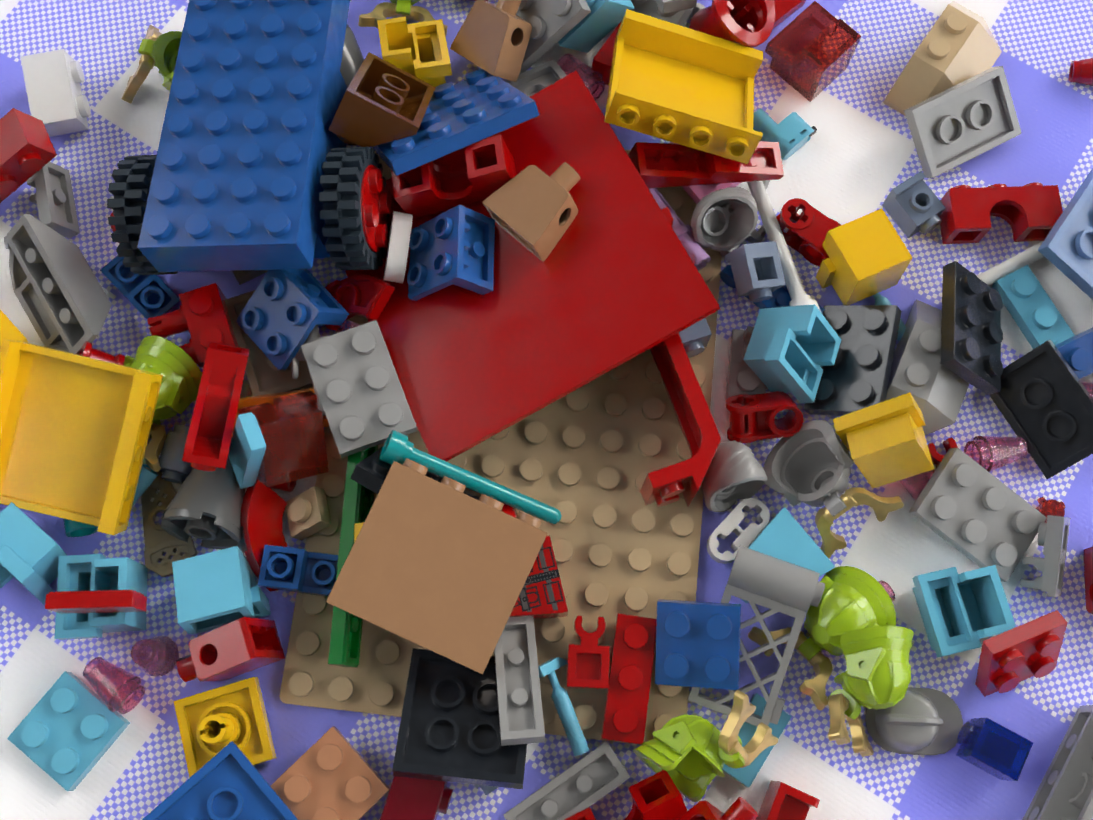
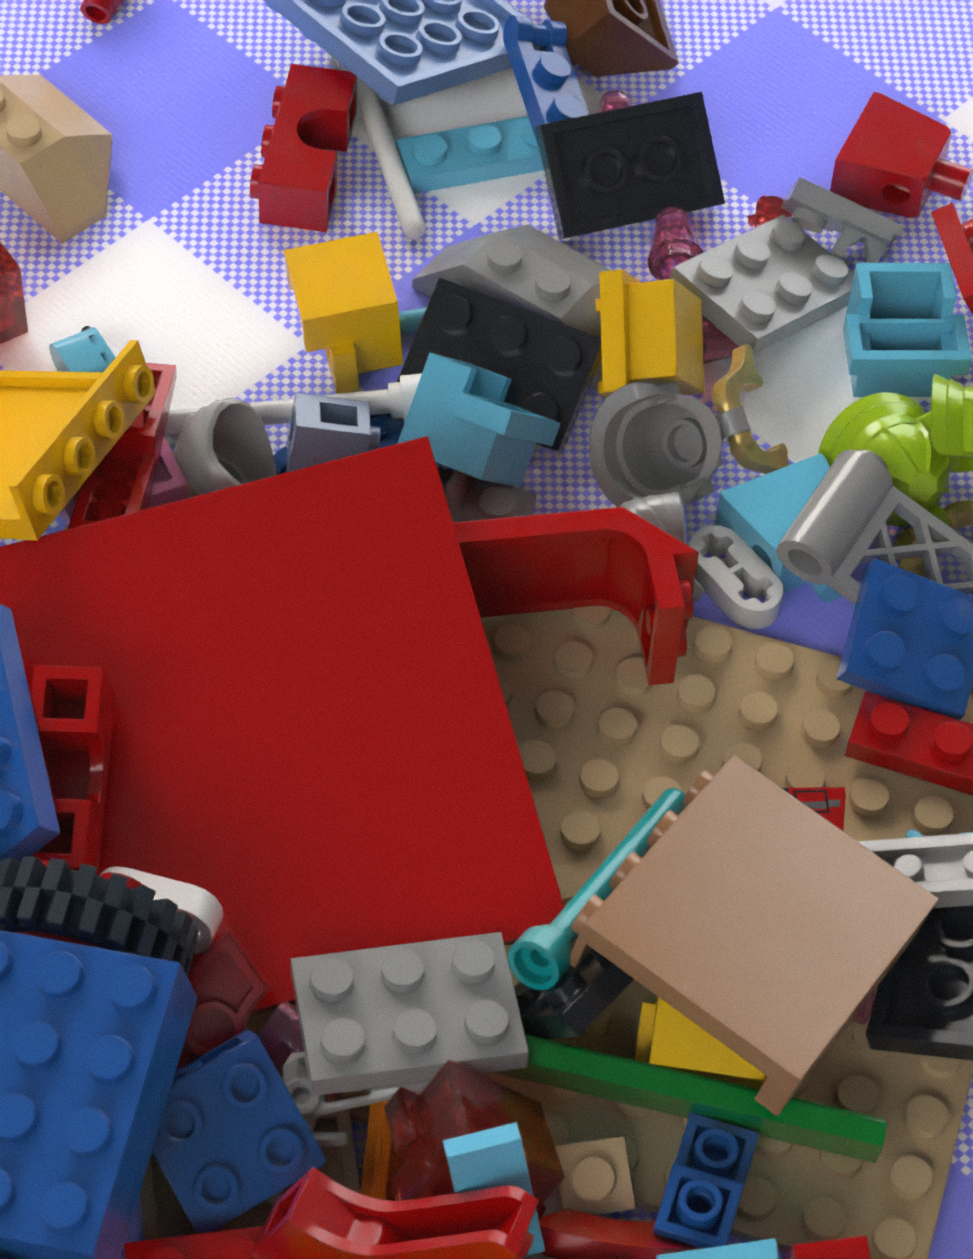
camera: 80 degrees left, 20 degrees down
(450, 251) = (203, 822): blue bracket -> none
(536, 207) = (170, 662): medium nougat torso -> none
(588, 662) = (919, 793): red plate -> none
(754, 417) = (566, 478): red piece -> none
(809, 230) = (271, 368): red piece -> none
(914, 206) = (257, 237): sand blue brick -> none
(963, 122) = (147, 145): light grey plate -> none
(971, 329) = (490, 211): black plate -> none

